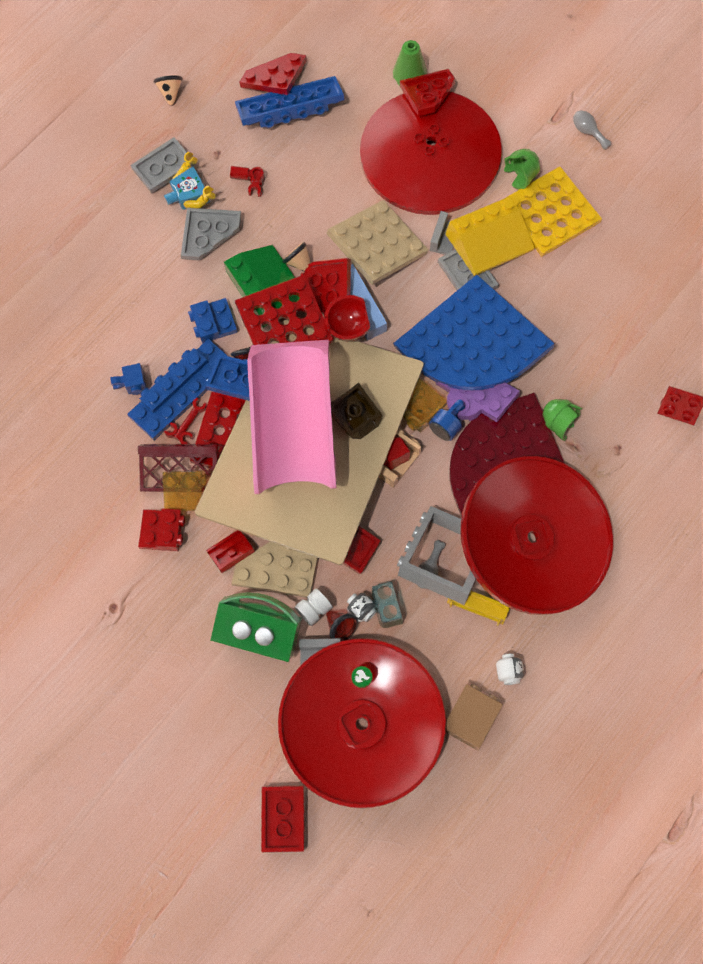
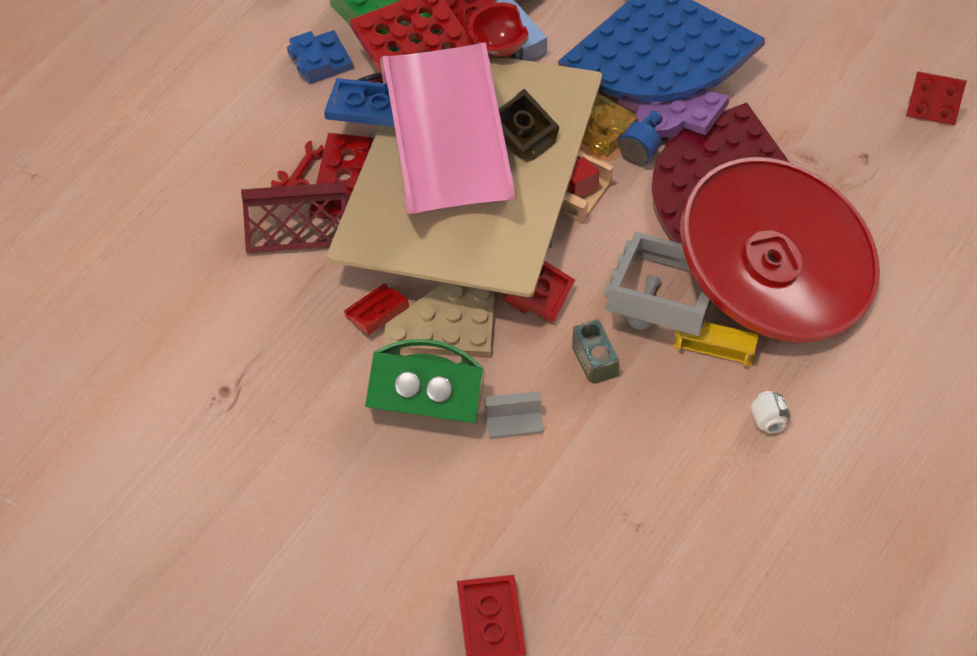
camera: 10 degrees left, 15 degrees down
(132, 379) = (222, 126): blue brick -> none
(161, 529) = (281, 293): red plate -> none
(175, 390) = (280, 135): blue plate -> none
(183, 489) = (305, 242): clear yellow plate -> none
(311, 608) = (499, 360): white wheel -> none
(341, 625) = (539, 376): clear red hat -> none
(354, 764) = (590, 442): red dish -> none
(361, 606) = (561, 358): head -> none
(361, 677) = (576, 427): green tile -> none
(472, 716) = (729, 472): medium nougat brick -> none
(560, 415) = (783, 119): bright green helmet -> none

